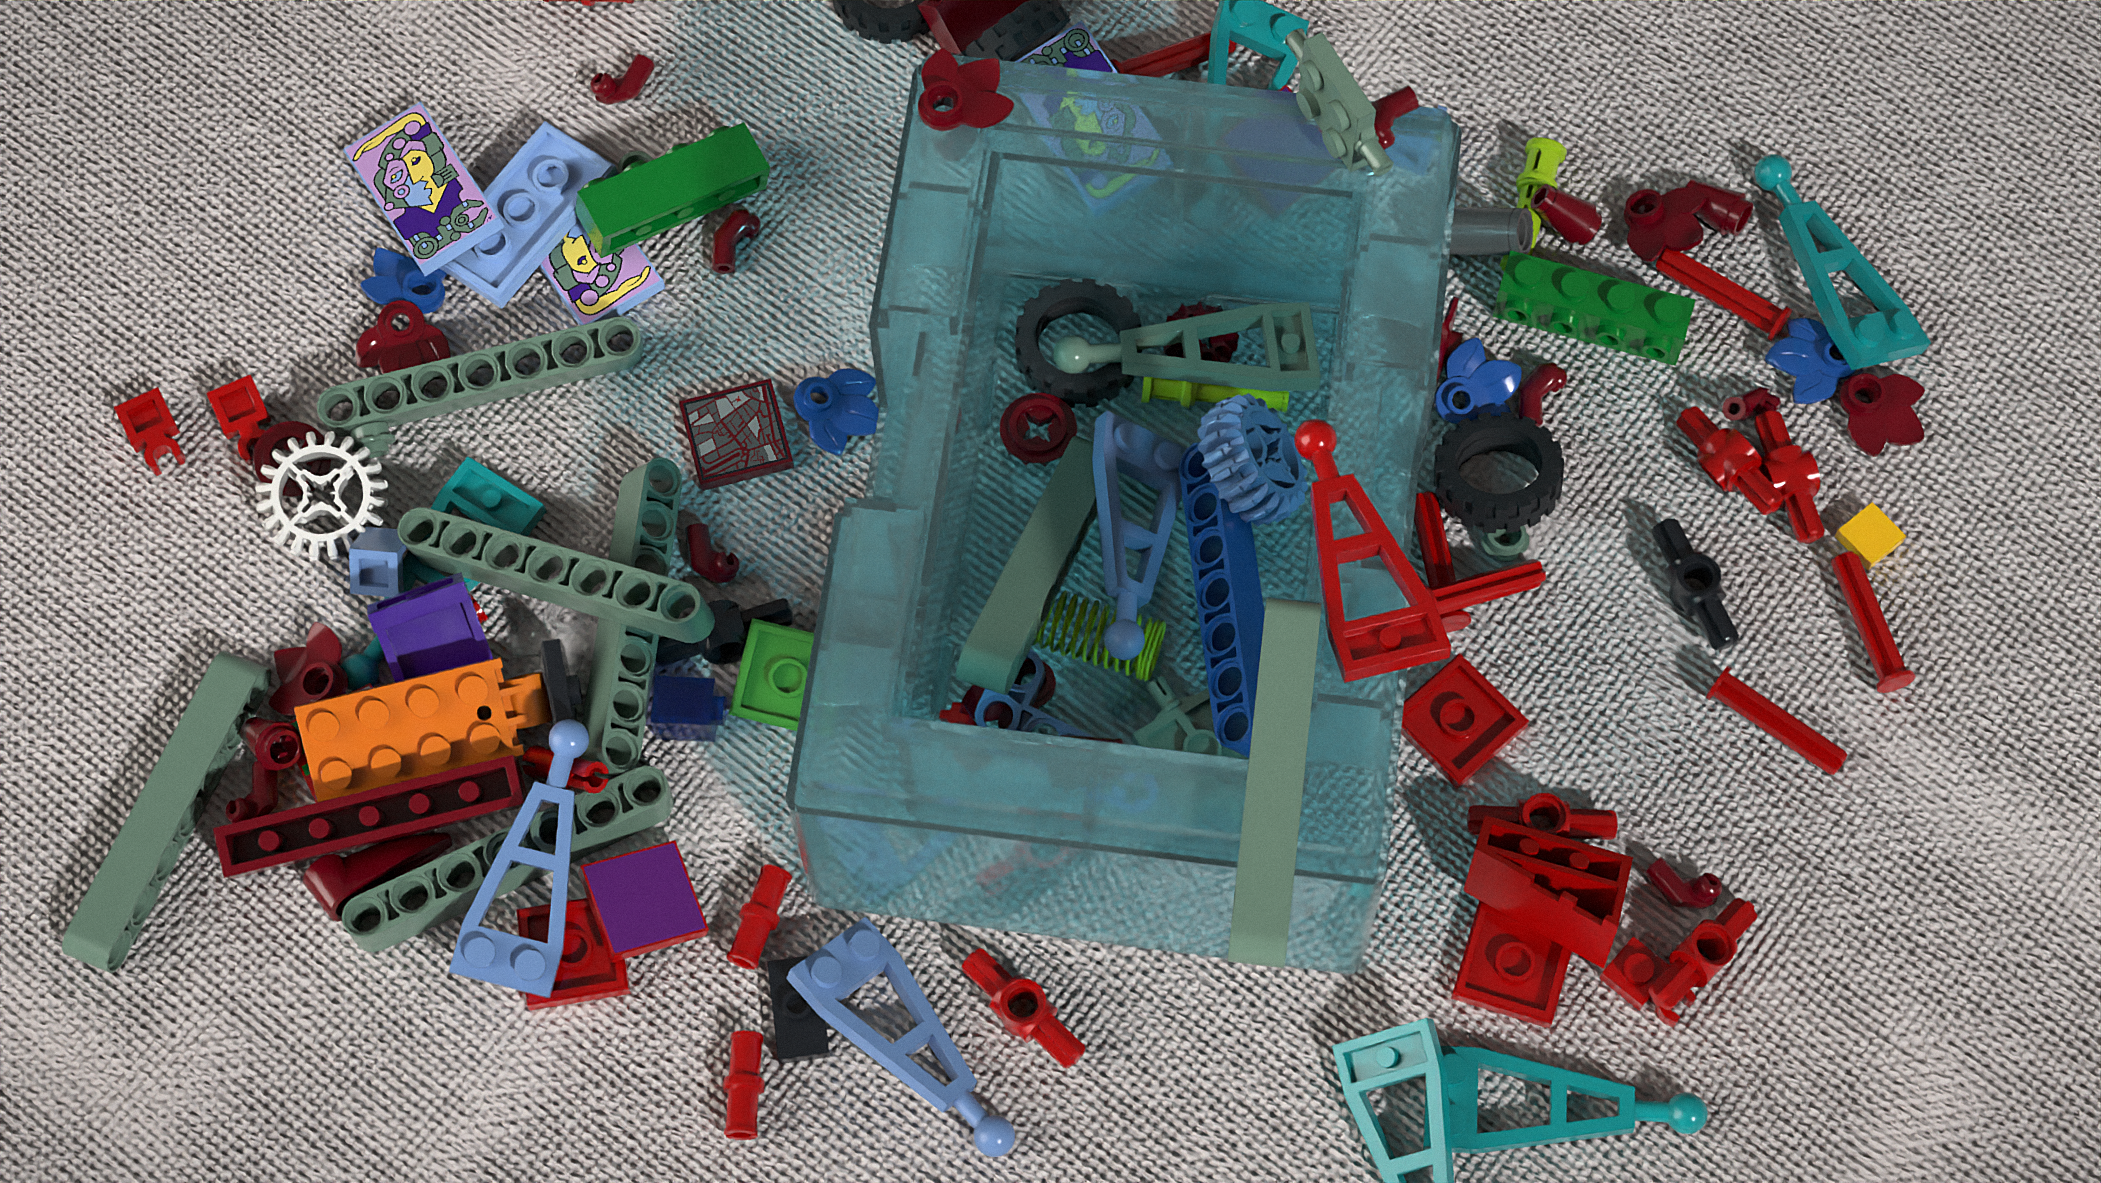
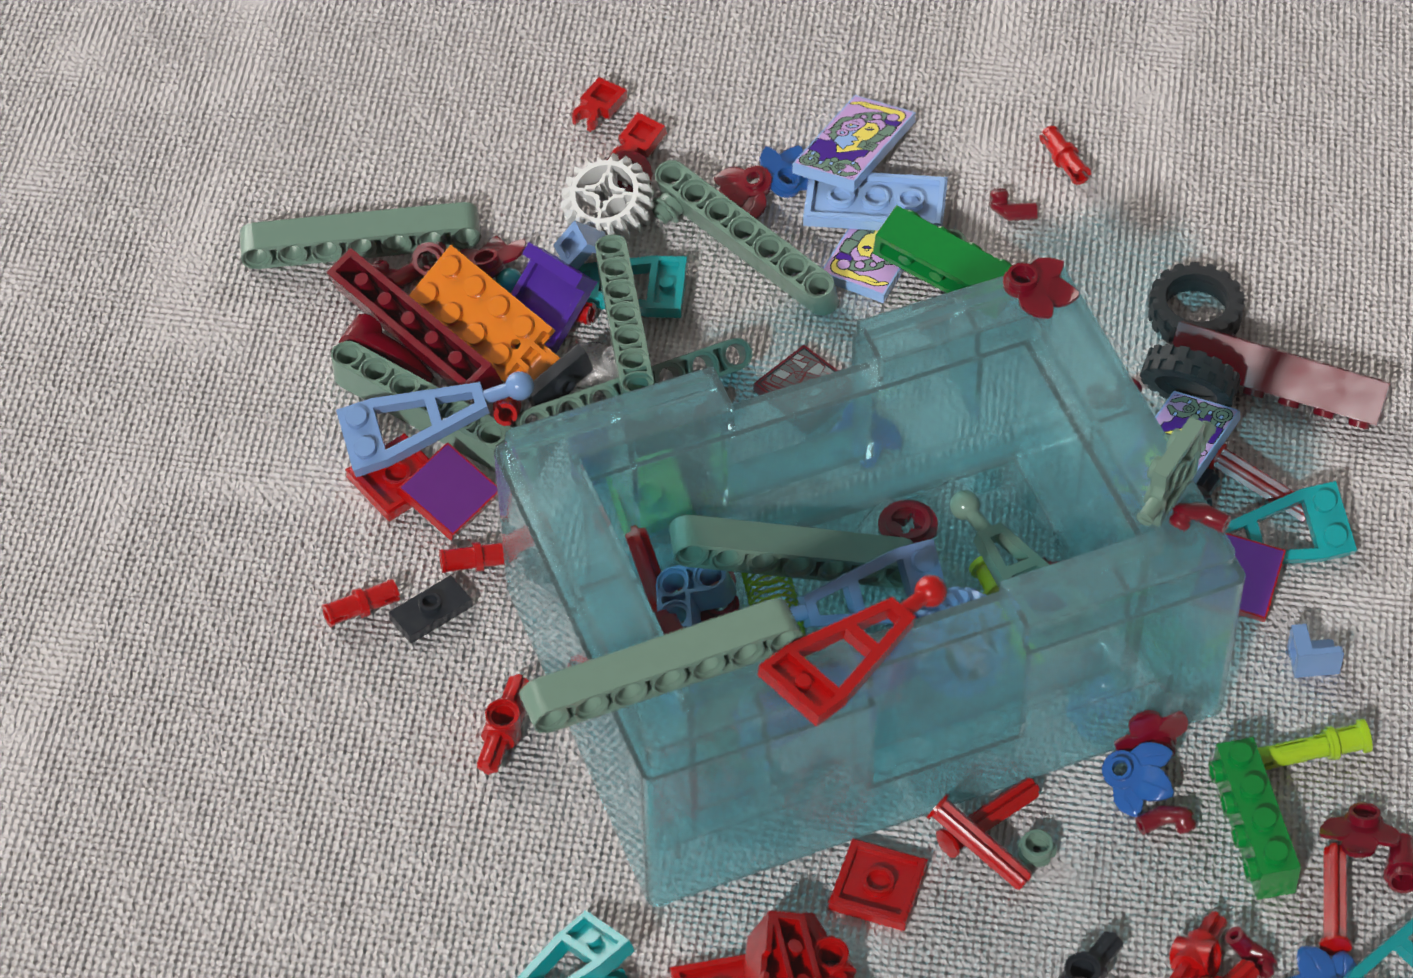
camera: 60 degrees right, 15 degrees down
(853, 961) = (472, 616): medium blue plate -> none
(1054, 303) = (987, 486): black tyre -> none
(1491, 231) = (1261, 718): dark grey pin -> none
(1498, 434) = (1070, 841): black tyre -> none
(1567, 214) = (1318, 767): dark red cone -> none

